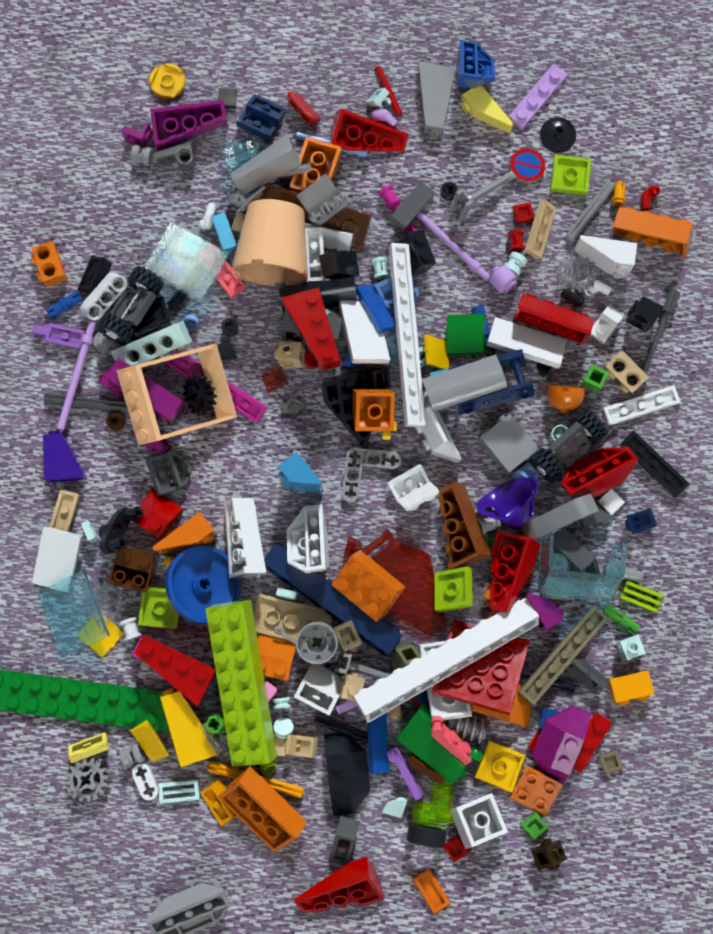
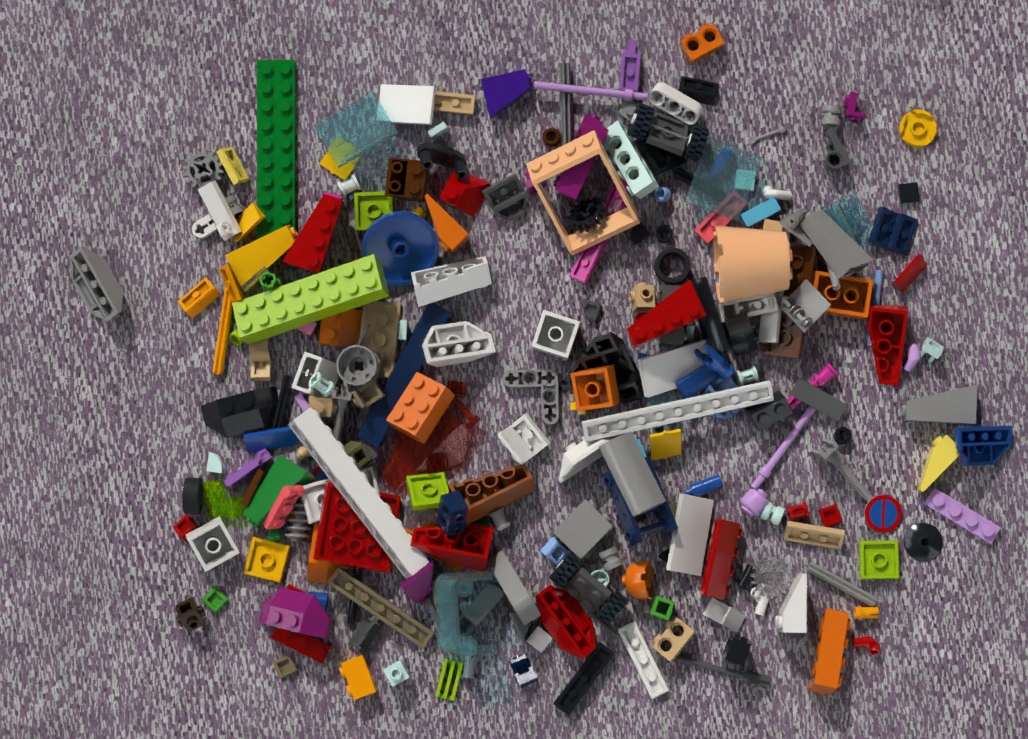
camera: 85 degrees right, 5 degrees up
(64, 304) = (662, 65): blue pin -> none
(132, 767) = (219, 210): none -> white hinge
(152, 232) = (752, 140): none -> light grey hinge
(178, 791) = (214, 269): light aqua tile -> none
(187, 121) = (871, 151): magenta wedge -> none
(210, 764) = (231, 283): none -> light orange slope
(262, 309) = (670, 280): none -> black tyre
(262, 809) = (196, 338): orange slope -> none
(274, 379) = (617, 287): clear red slope -> none
(281, 703) = (298, 341): light aqua bush -> none
(283, 728) = (275, 346): light aqua tile -> none
(299, 476) = (519, 324): dark azure slope -> none
(314, 442) = (555, 334): none -> white brick
(330, 683) = (321, 384): none -> light aqua bush
(344, 840) = (179, 419): dark grey slope -> none
(351, 883) = (140, 431): red wedge -> none
(365, 291) = (715, 362): none -> blue piece
(385, 84) = (943, 358): red bar -> none
(431, 890) = (143, 508): orange tile -> none
(465, 334) = (689, 471): green slope -> none
(480, 566) = (452, 513): none -> dark blue brick
(511, 501) = (524, 538): dark purple piece -> none
(536, 790) = (248, 596): orange hinge -> none
(540, 421) = (610, 558): none -> light grey wheel
(621, 619) = (423, 661): bright green axle -> none

